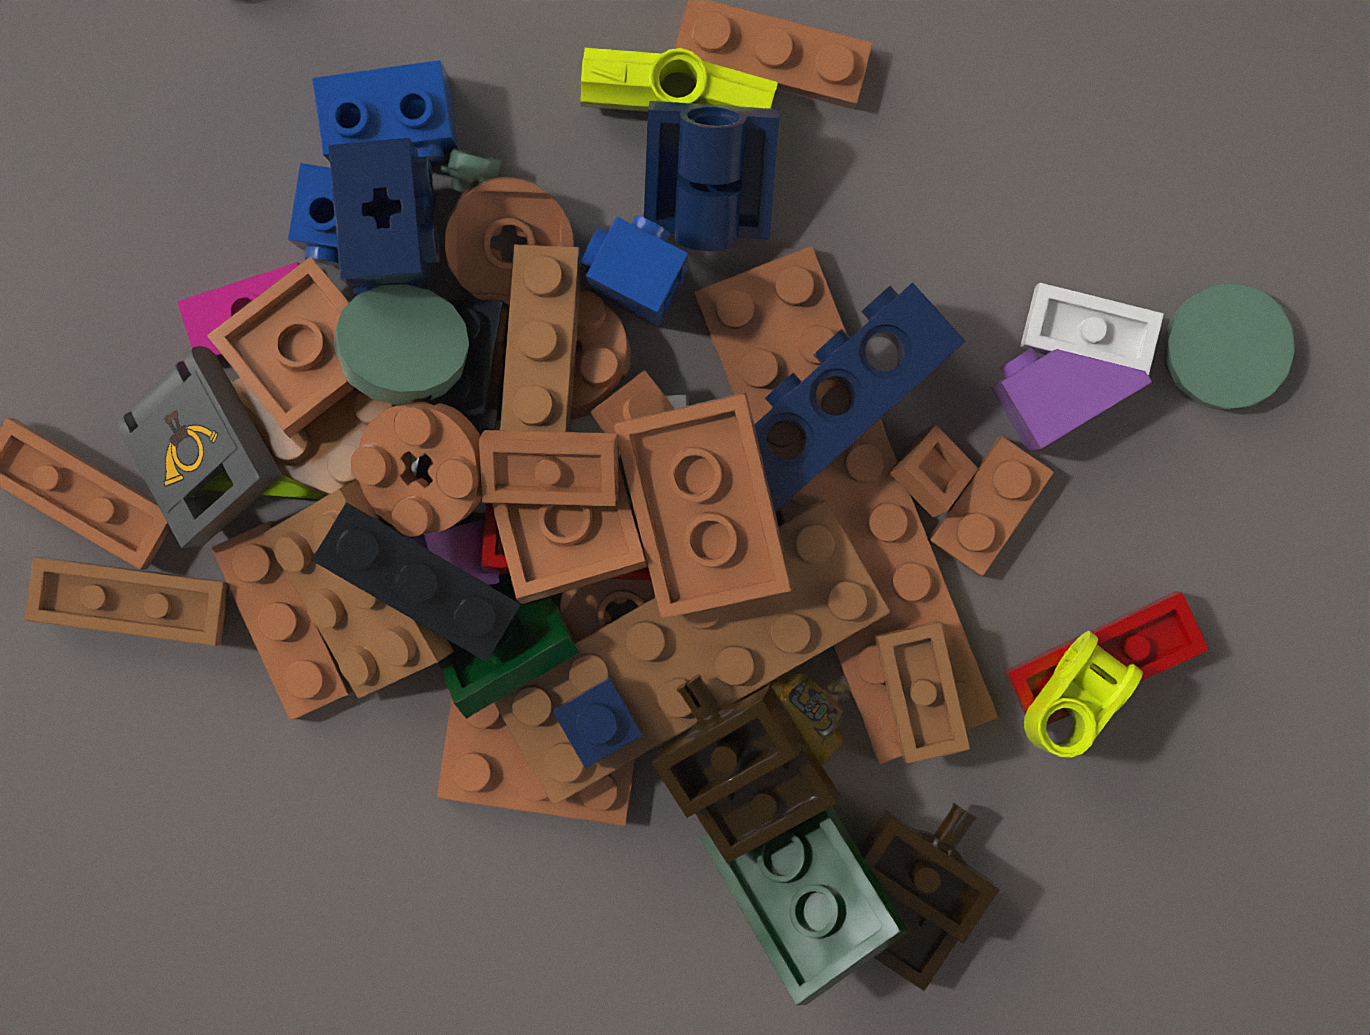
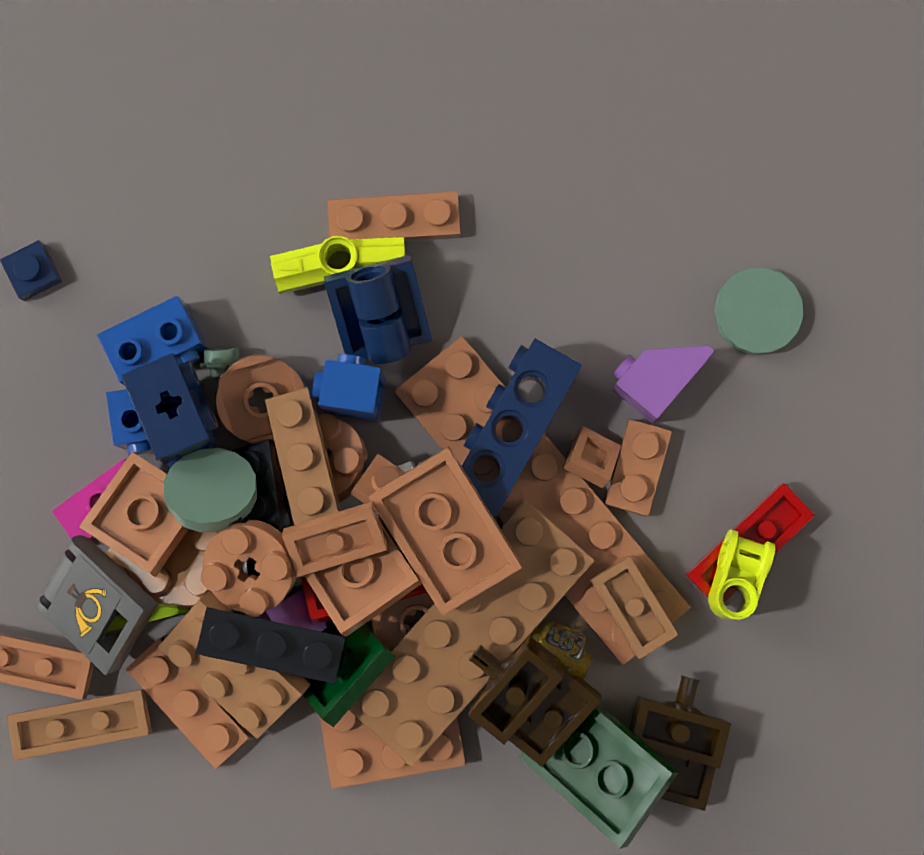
camera: 20 degrees left, 5 degrees down
(598, 722) = (423, 700): dark blue plate -> none
(1091, 327) = (663, 328): white plate -> none

